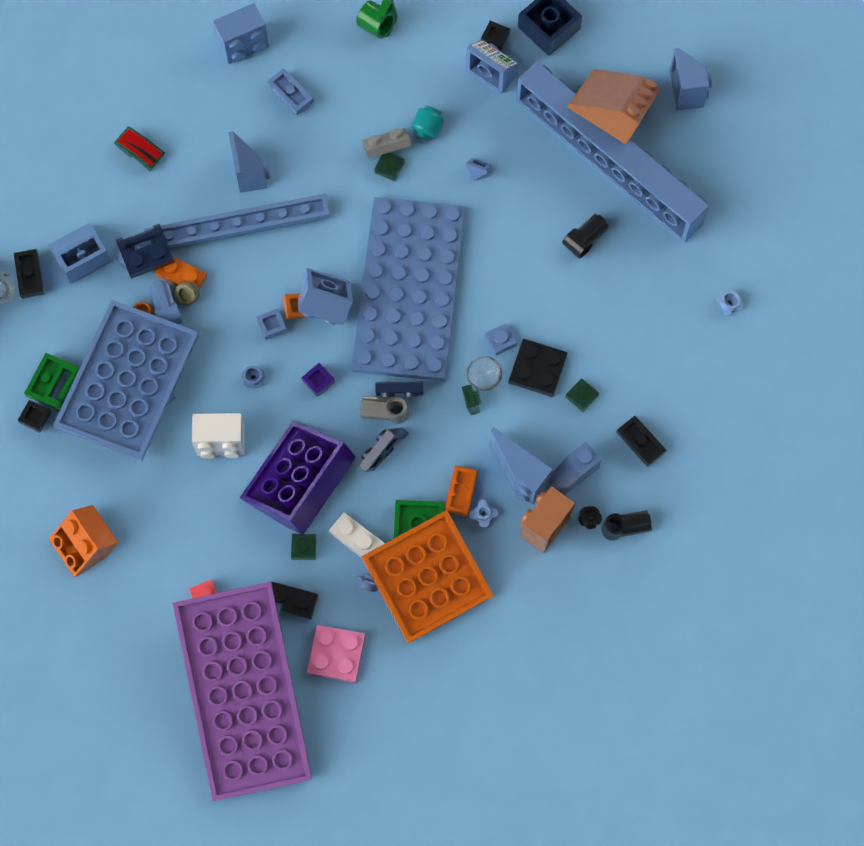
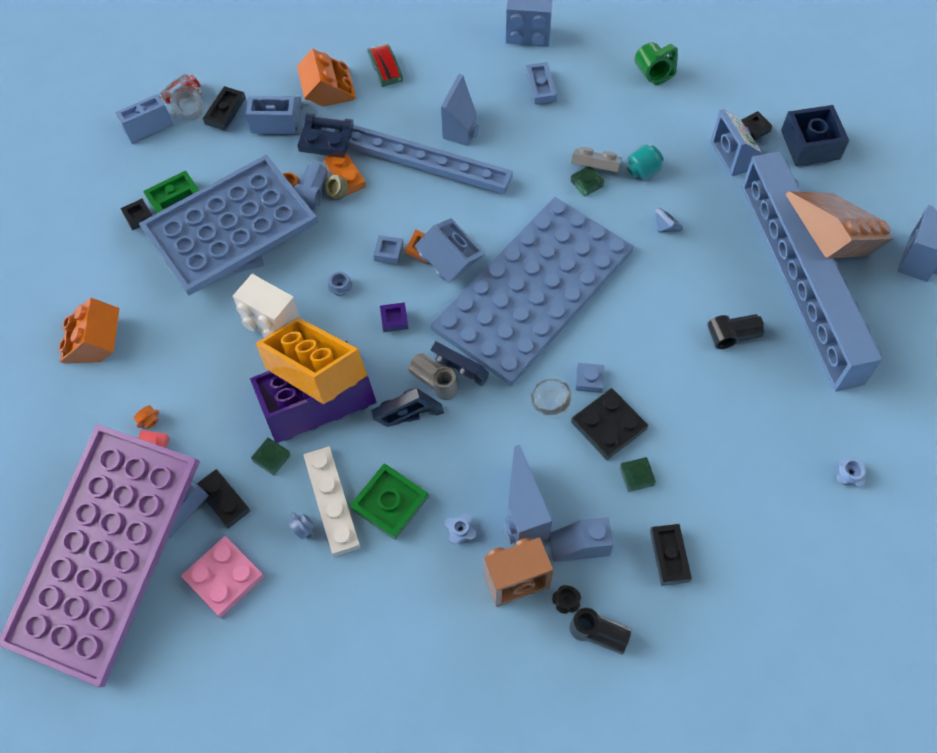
camera: 35 degrees right, 10 degrees down
(99, 195) = (325, 79): none -> orange slope
(185, 576) = (146, 417): none -> orange plate
(289, 454) = (311, 360): none -> light orange brick
(427, 576) = (358, 554): orange plate -> none
(461, 491) = (453, 494): orange plate -> none
(472, 399) = (522, 413): clear green plate -> none

